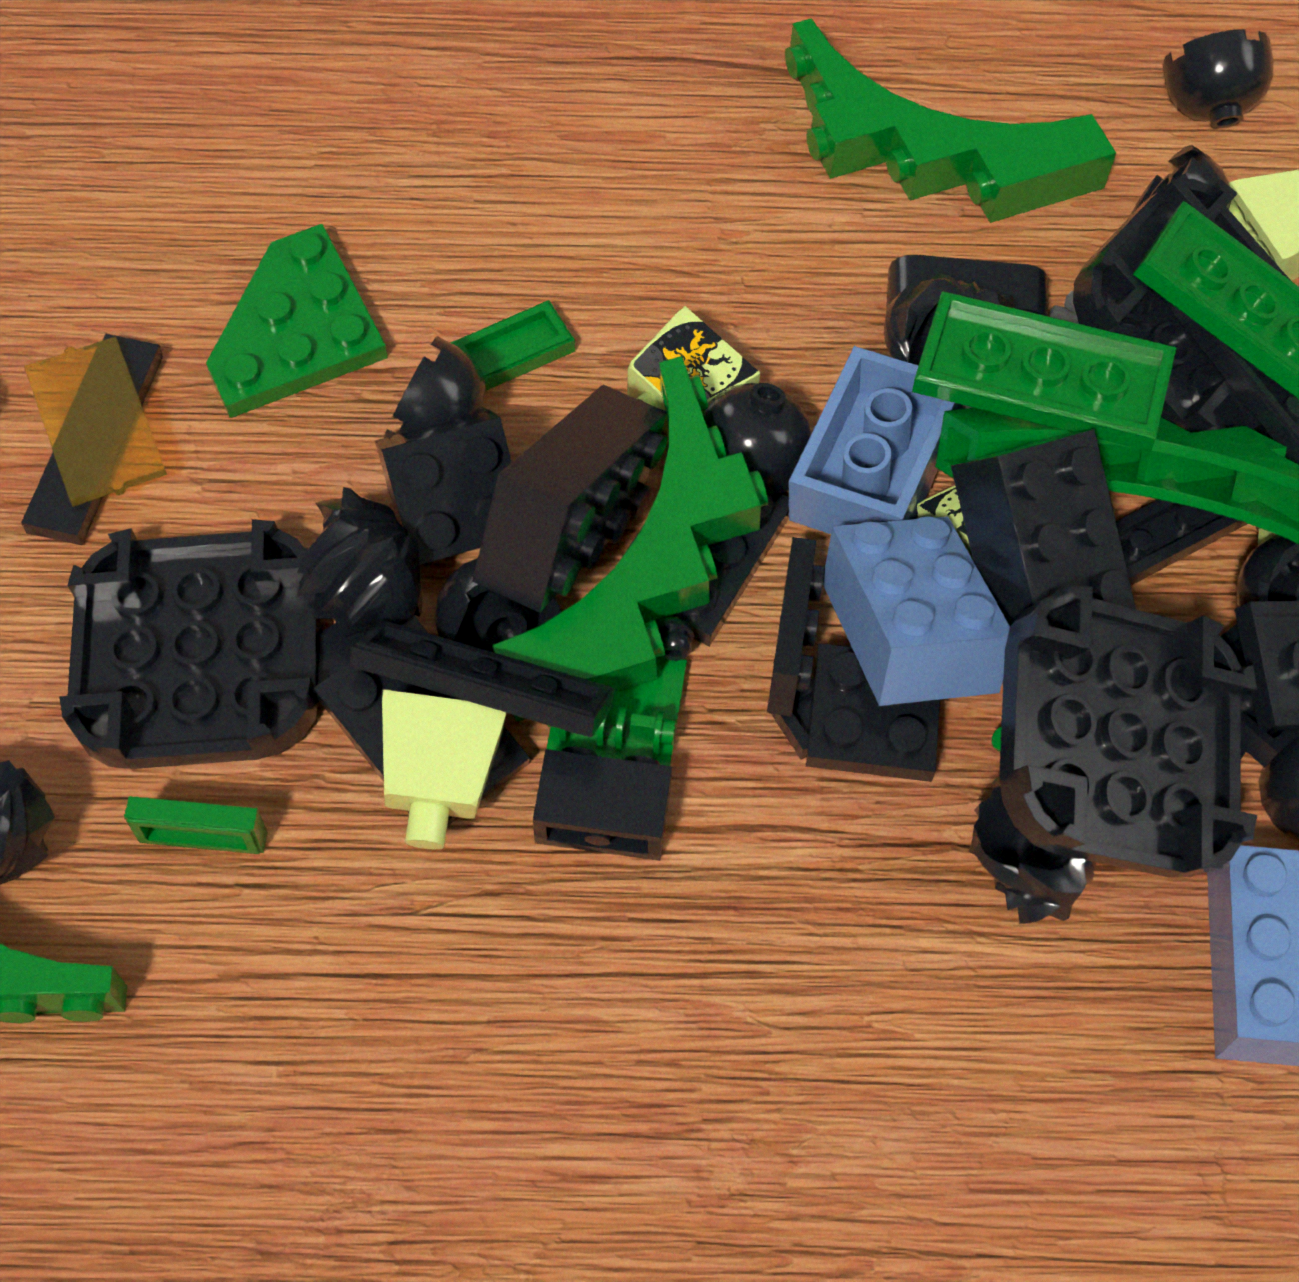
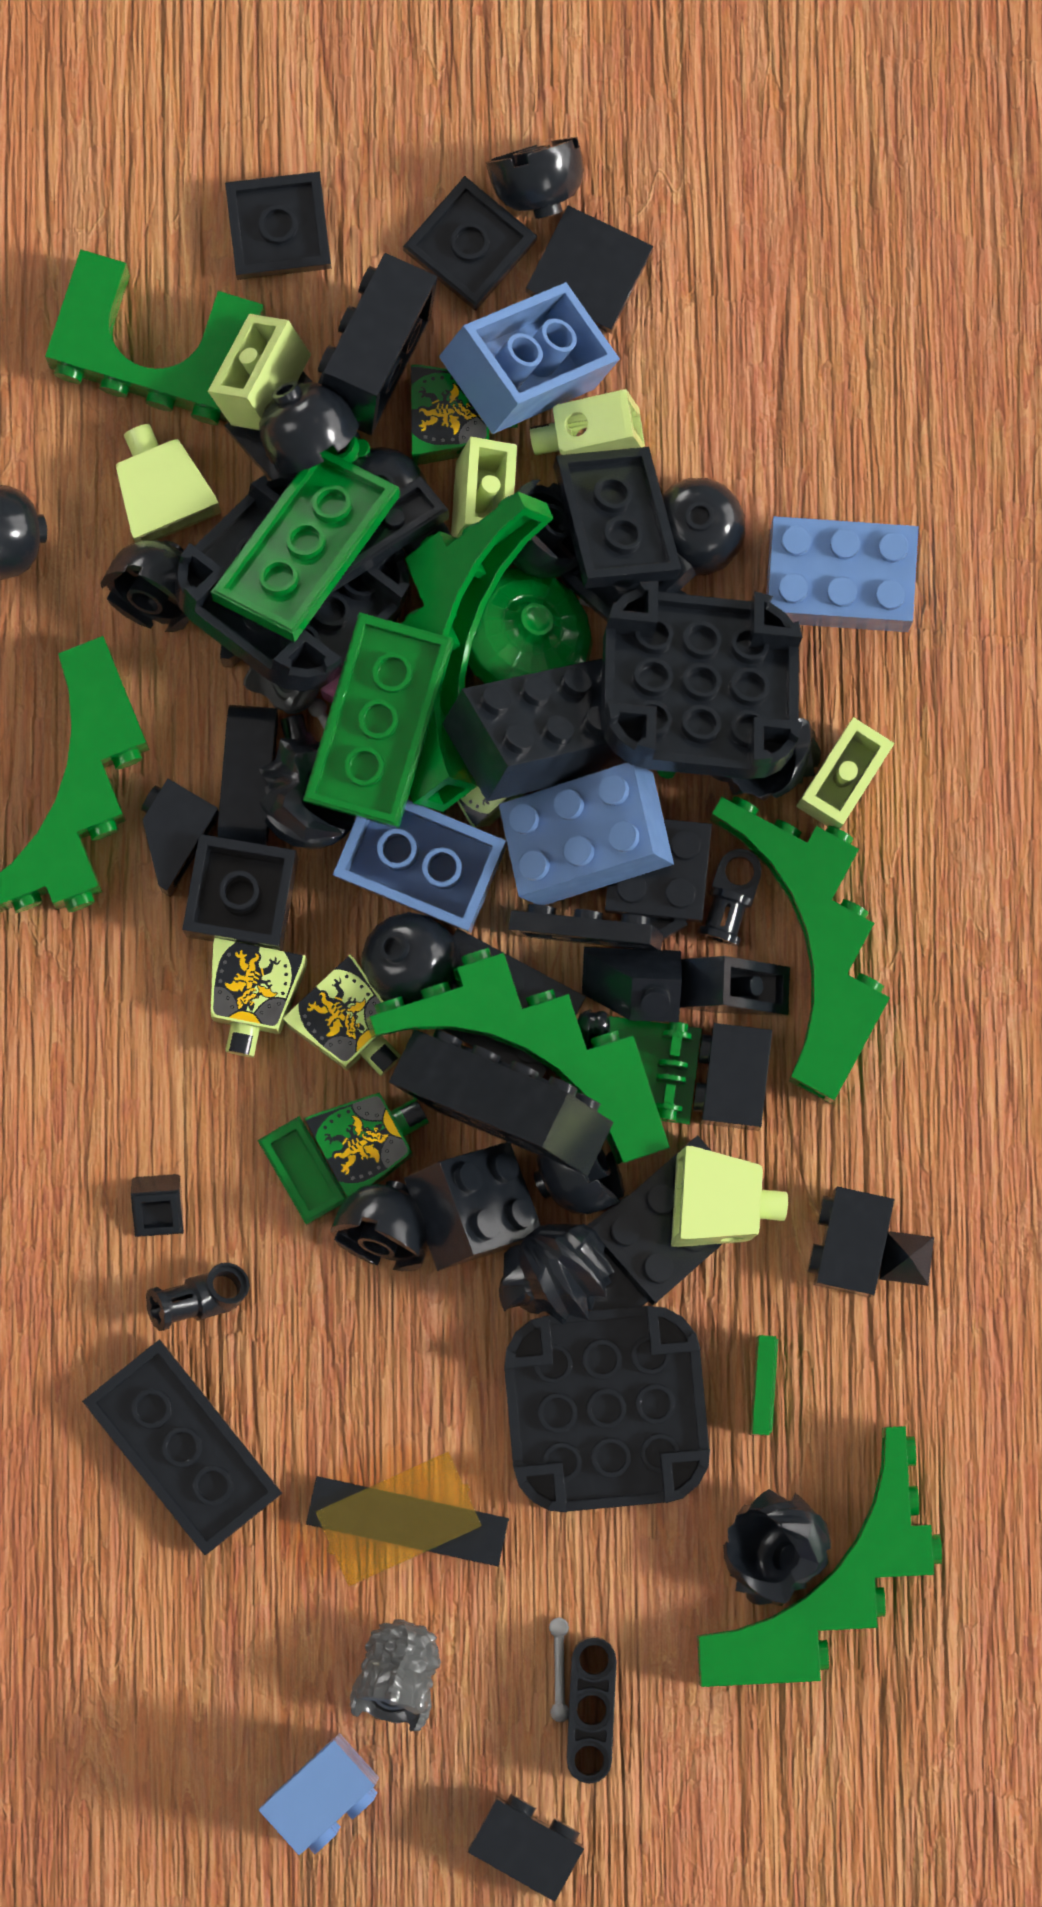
camera: 90 degrees left, 20 degrees up
(209, 224) = (182, 1447): none -> black plate
(293, 326) = (284, 1362): green plate -> none
(350, 1023) = (907, 1258): none -> black slope
(373, 233) = (195, 1297): none -> black connector
(374, 942) = (851, 1241): none -> black brick
(483, 213) = (157, 1205): none -> black slope
(483, 677) = (661, 1166): black tile -> none
(535, 385) = (366, 1138): none -> torso
(689, 937) = (834, 933): none -> green arch
(722, 809) = (734, 986): none -> black slope
(723, 286) = (252, 991): none -> torso
(726, 691) = (634, 982): none -> black slope
(829, 276) = (240, 892): none -> black brick
(838, 808) = (730, 895): none -> black connector
(892, 223) = (173, 830): none -> black slope
(1012, 947) = (845, 774): none -> yellowish green brick
(1179, 560) = (529, 629): none -> green hat

